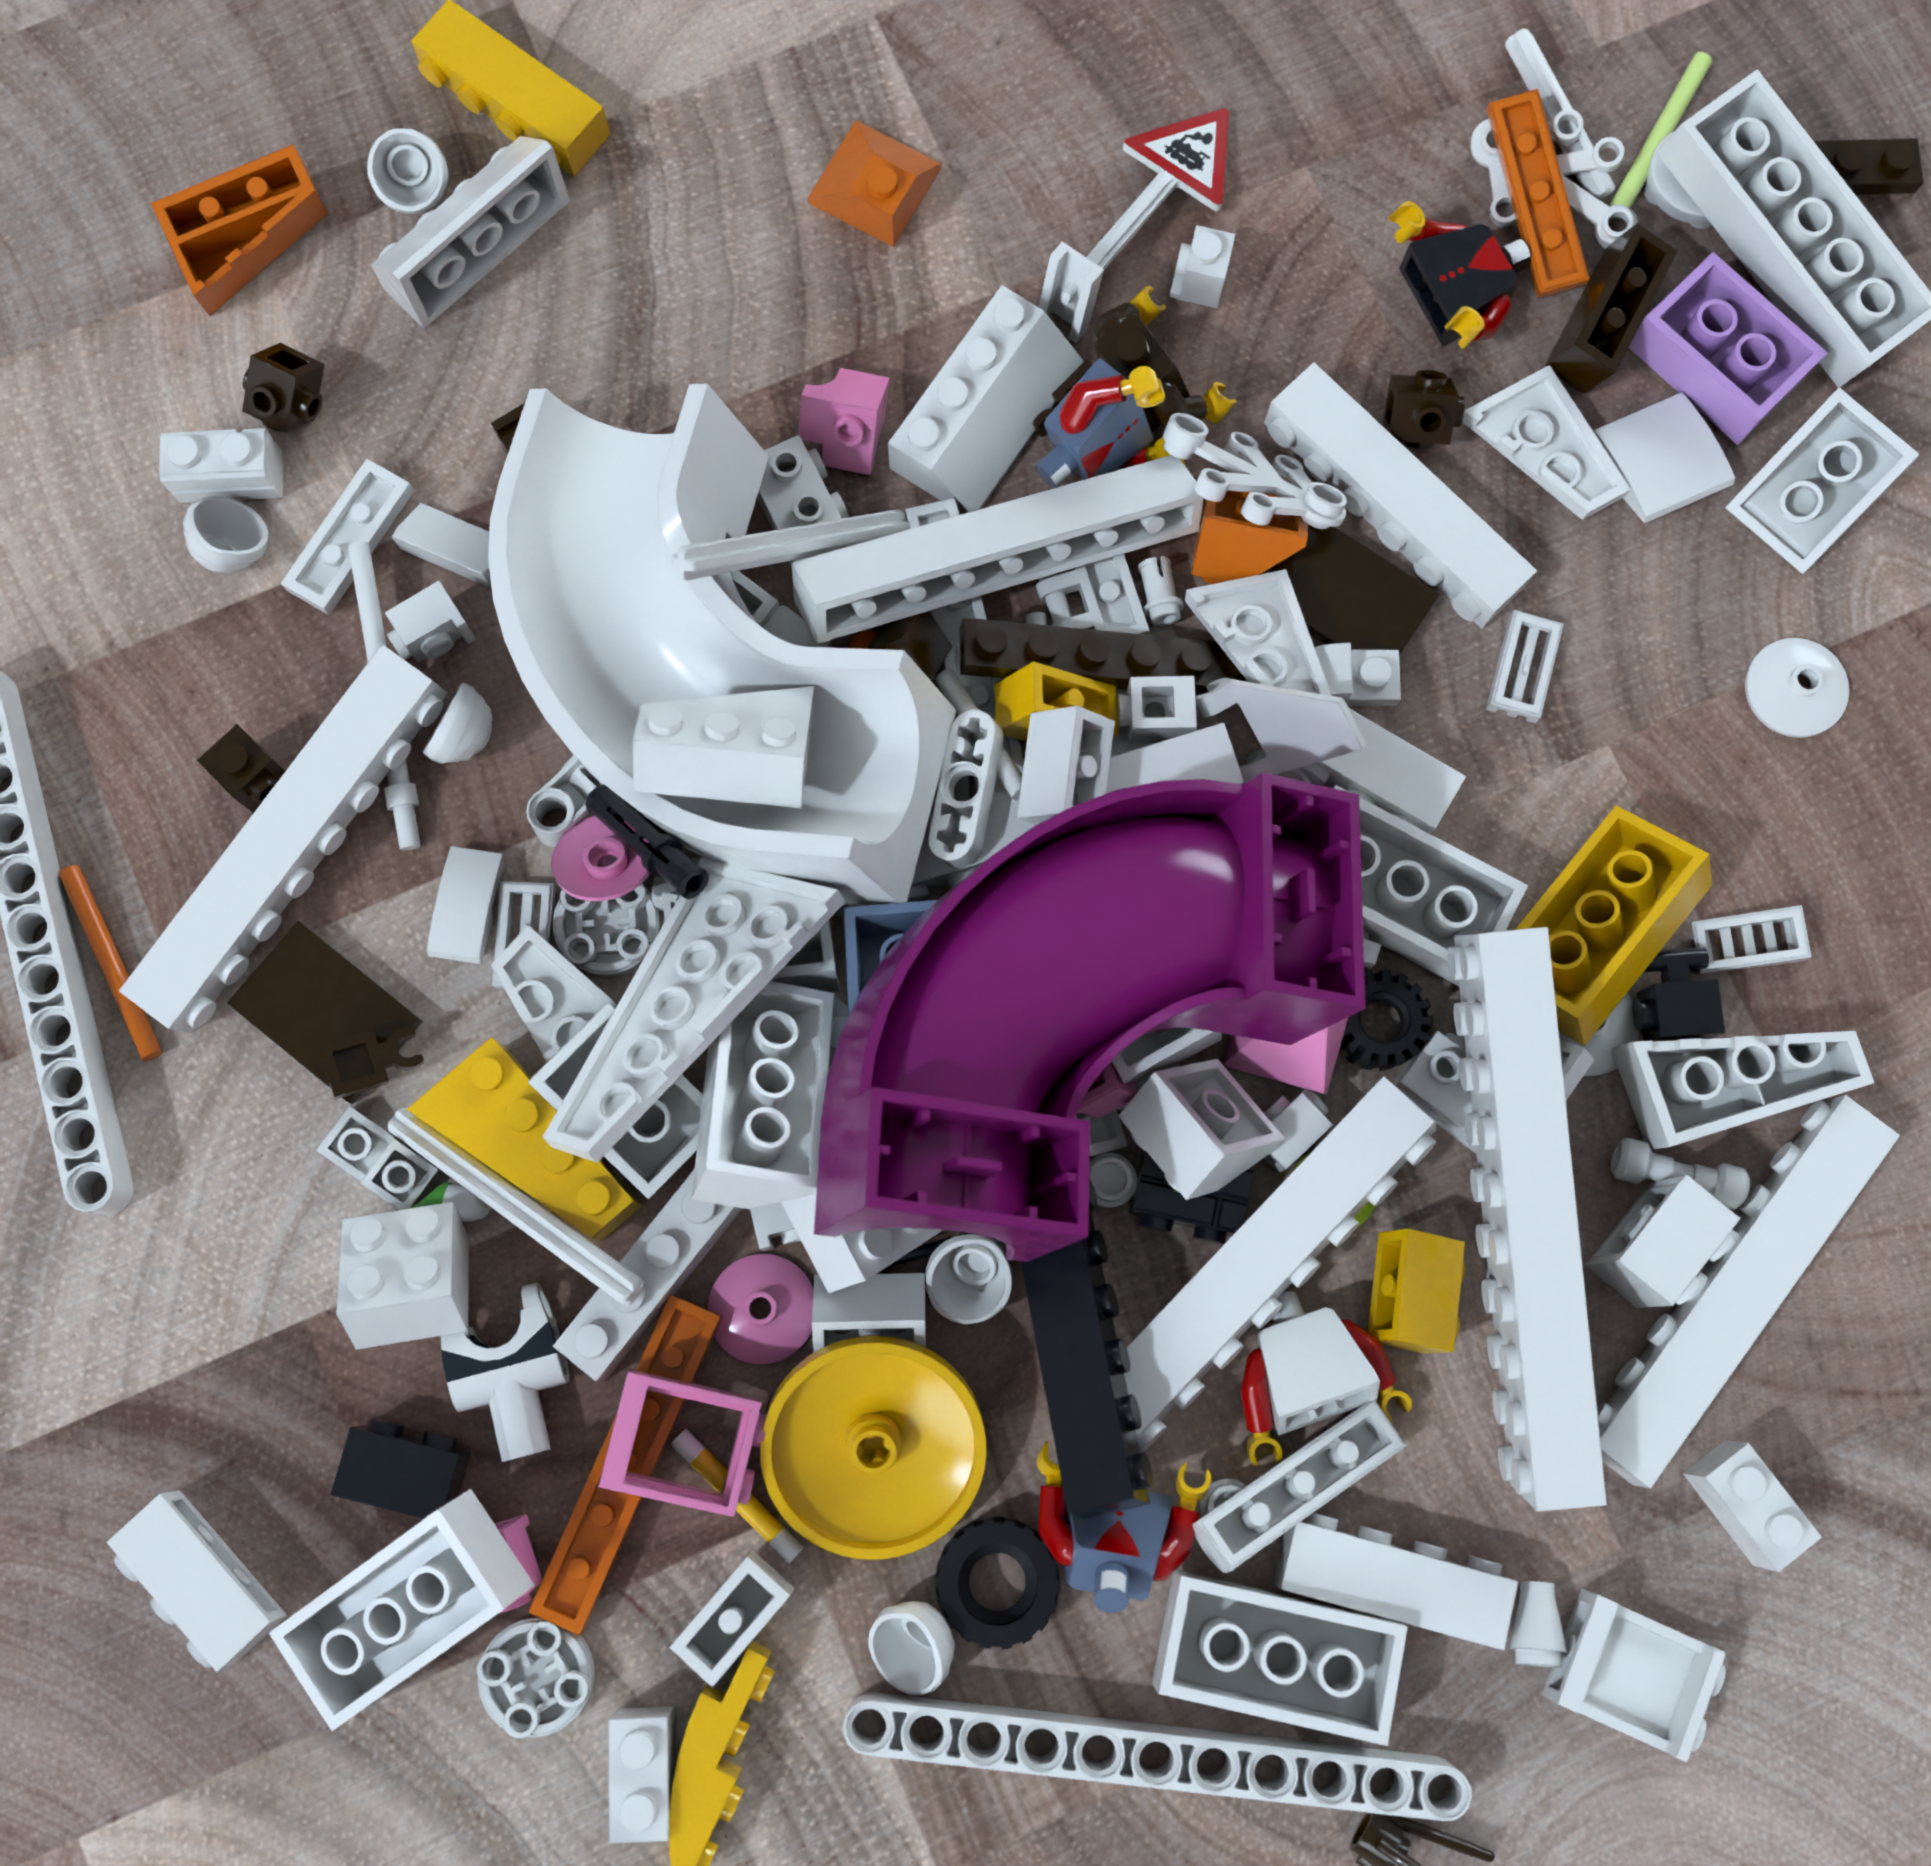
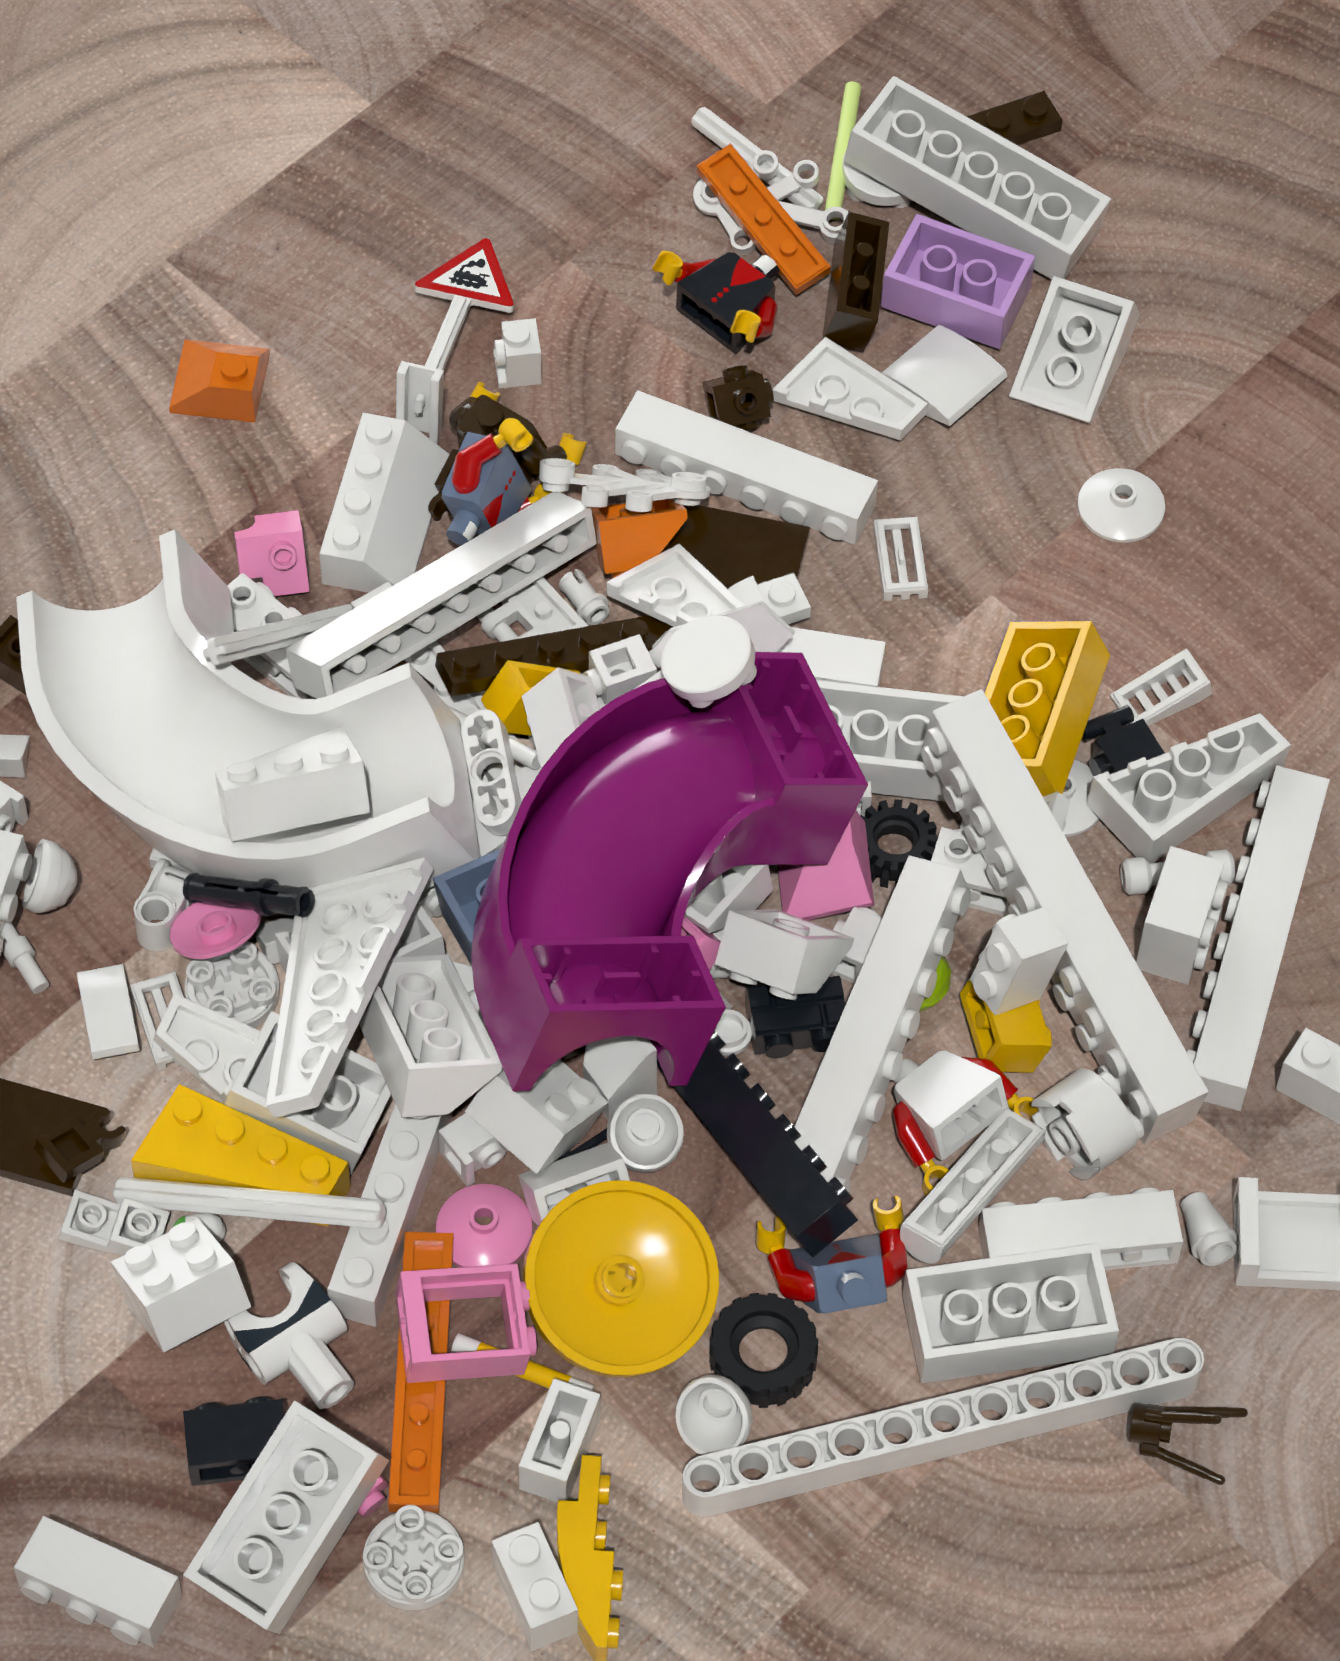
camera: 20 degrees left, 20 degrees down
(1241, 783) = (708, 659): none -> white tile
(1454, 1259) = (1018, 960): none -> white brick
(1455, 1459) = (1086, 1122): none -> white brick

